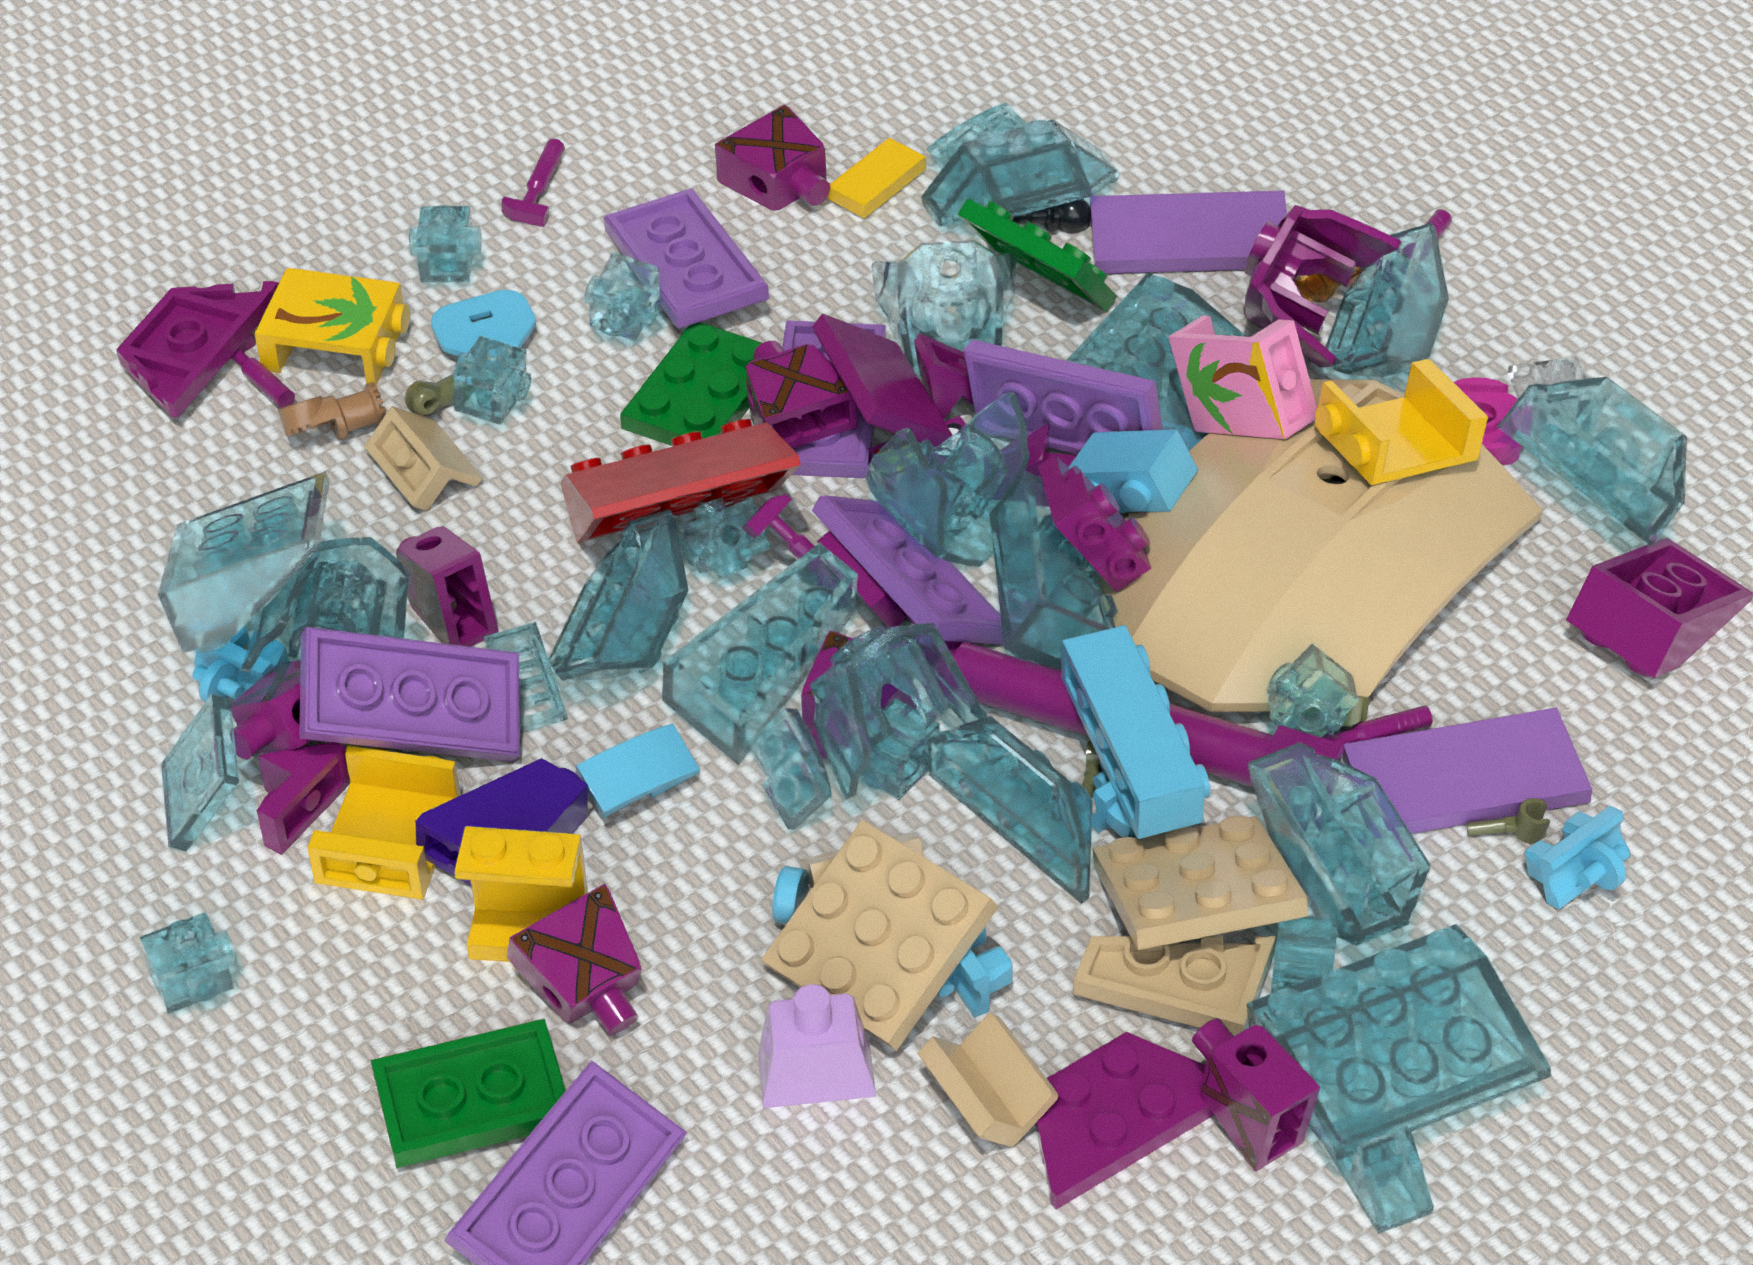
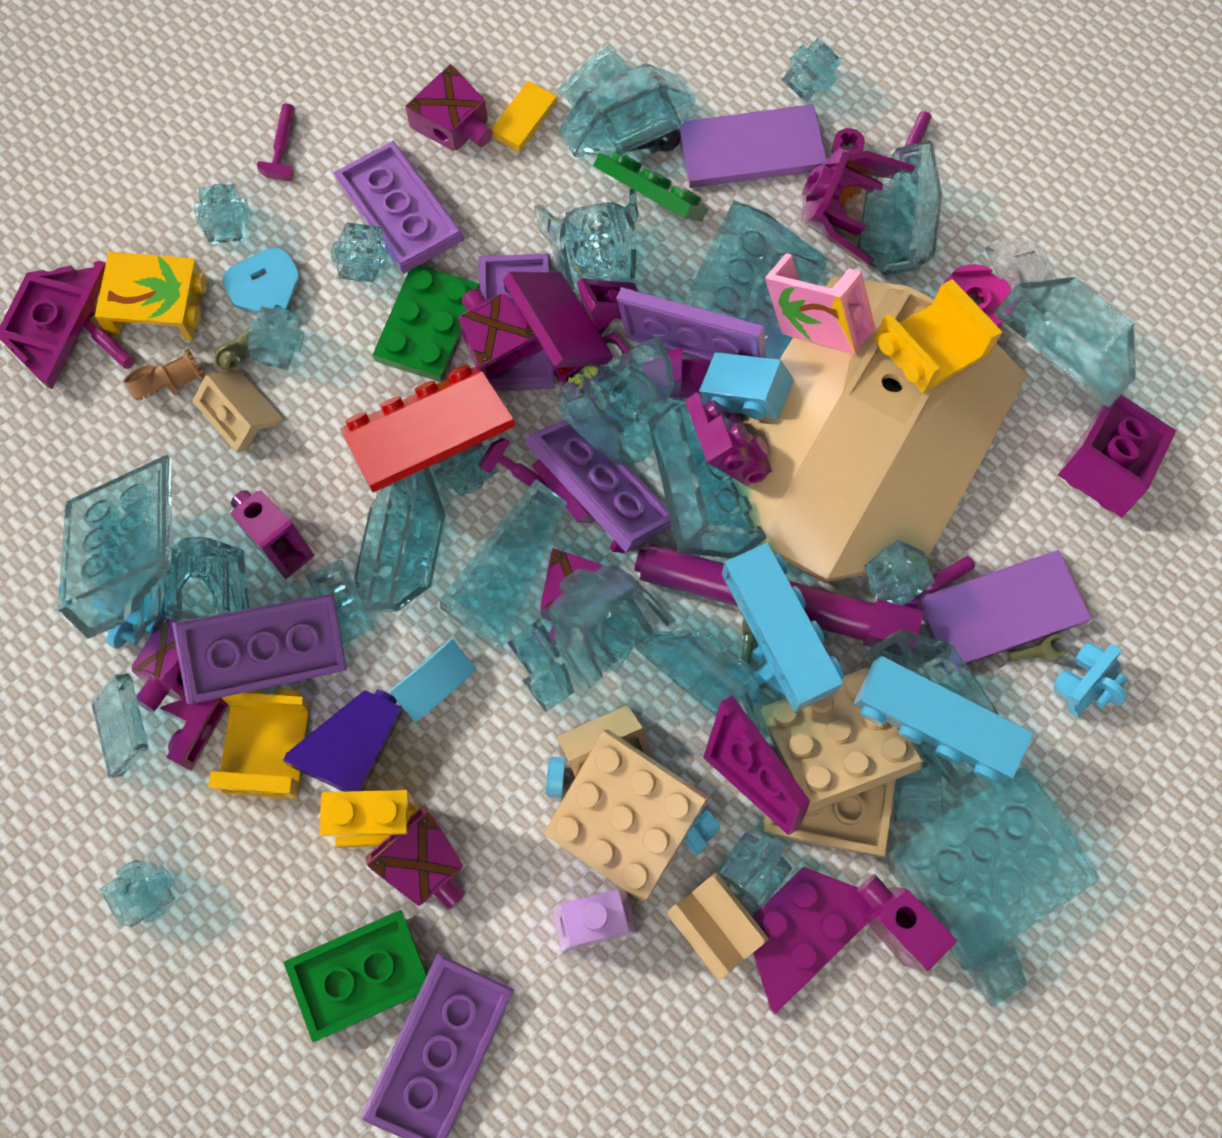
camera: 10 degrees left, 25 degrees up
(1054, 1016) = (755, 868): none -> clear light blue brick
(1067, 890) = (753, 767): none -> magenta wing
(1285, 149) = (812, 70): none -> clear light blue brick
(1338, 839) = (942, 719): none -> medium azure brick

